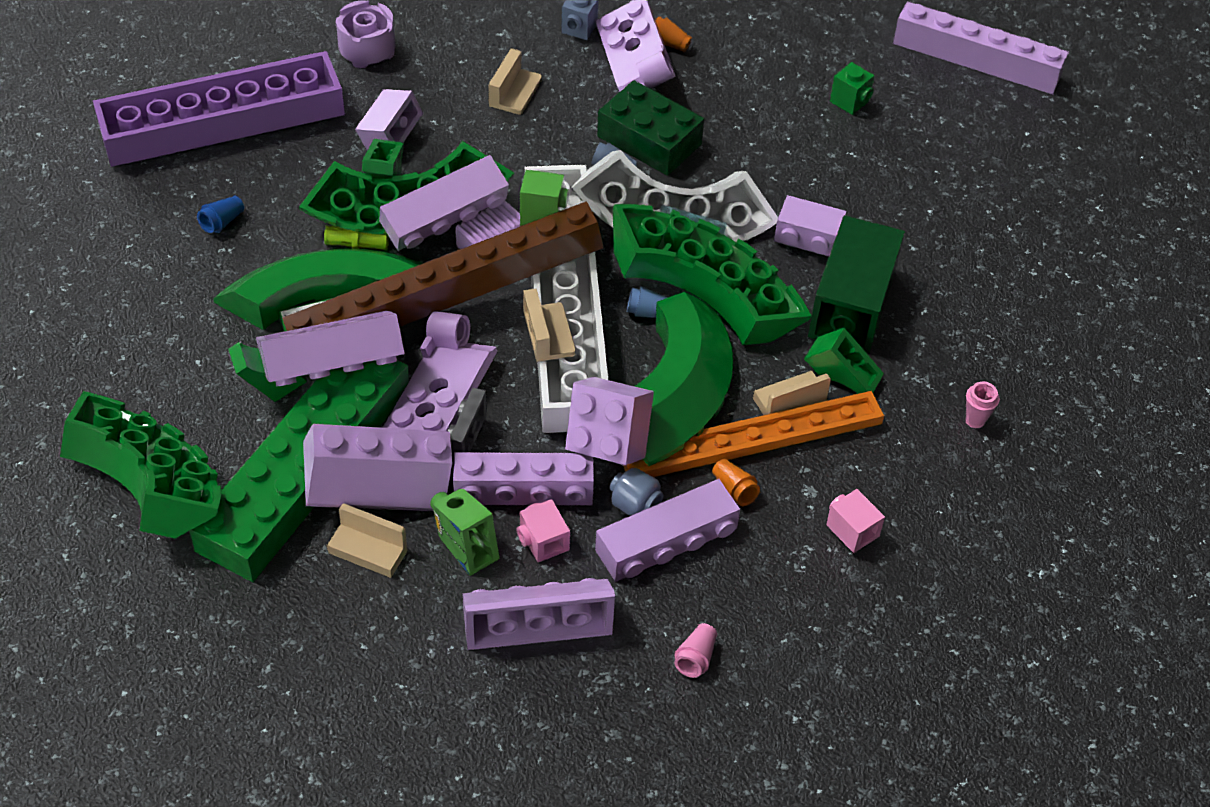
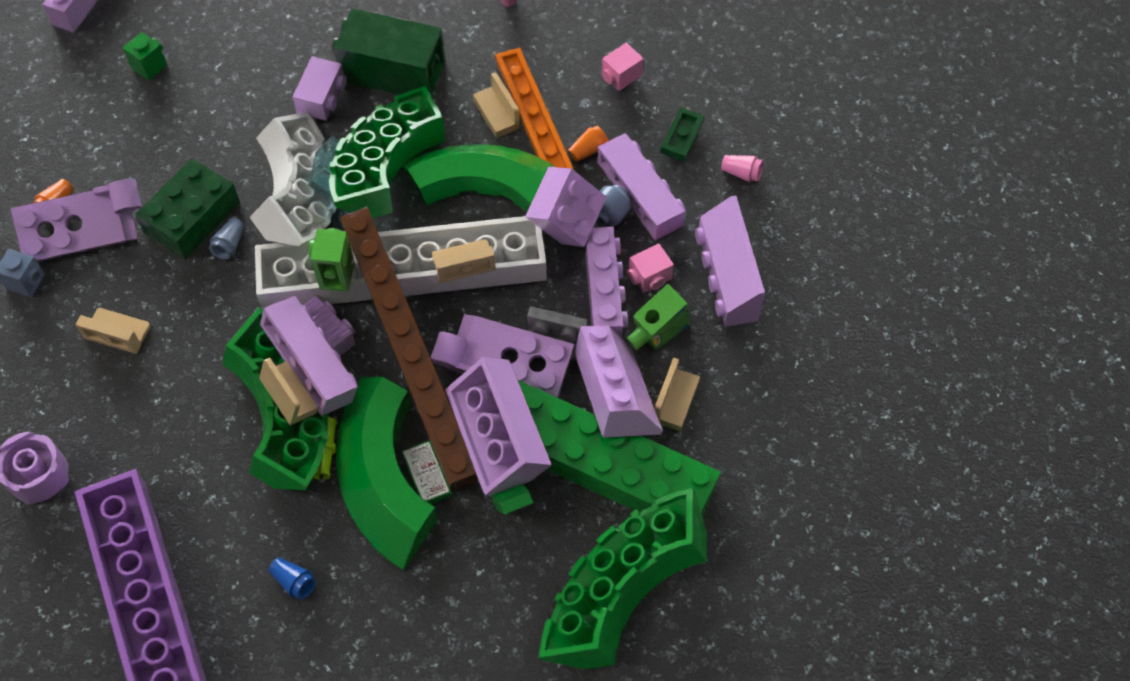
camera: 90 degrees left, 10 degrees up
(383, 159) = (239, 422): green arch -> none
(390, 117) = (171, 430): lavender brick -> none
(401, 180) = (287, 391): none -> tan panel
(643, 302) = (405, 206): medium blue cone -> none
(751, 585) = (682, 134): none -> dark green plate
(844, 361) = (466, 72): green arch -> none

